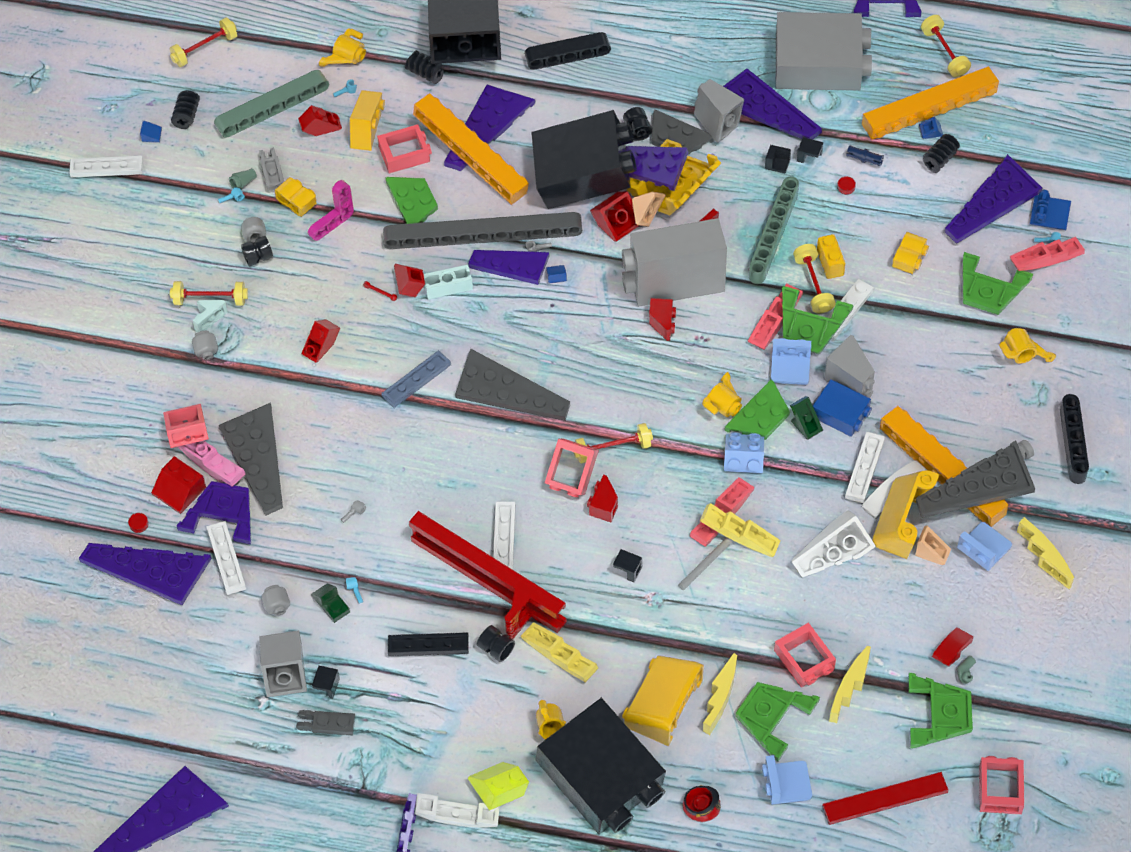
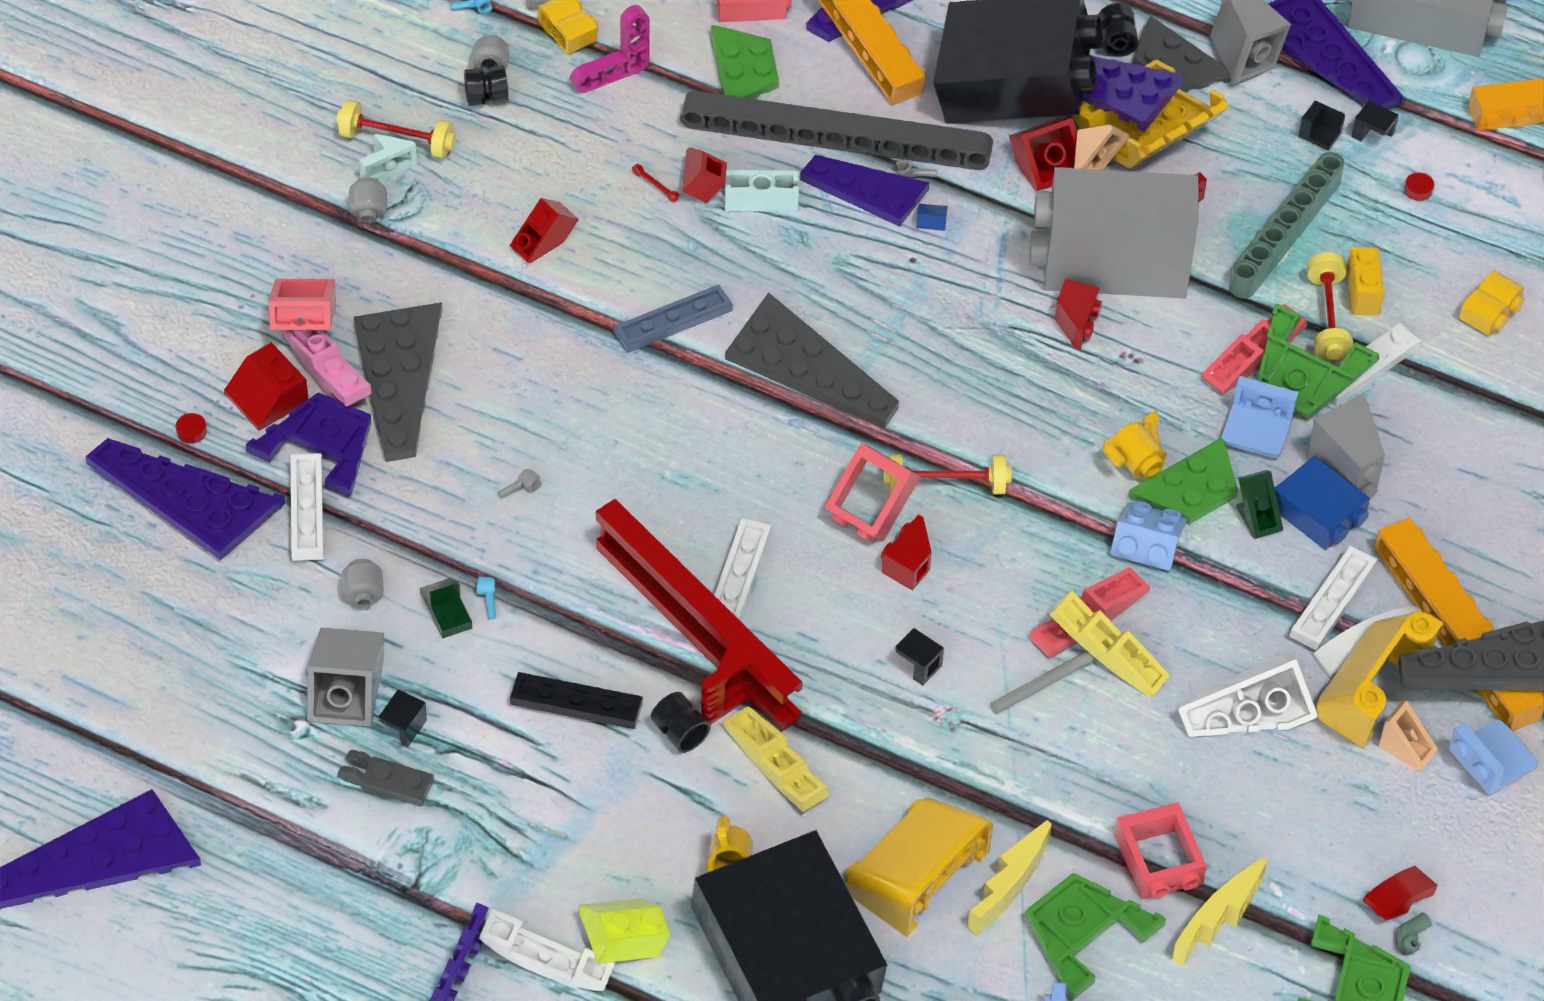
camera: 10 degrees right, 5 degrees down
(865, 155) = (1460, 149): dark blue pin -> none

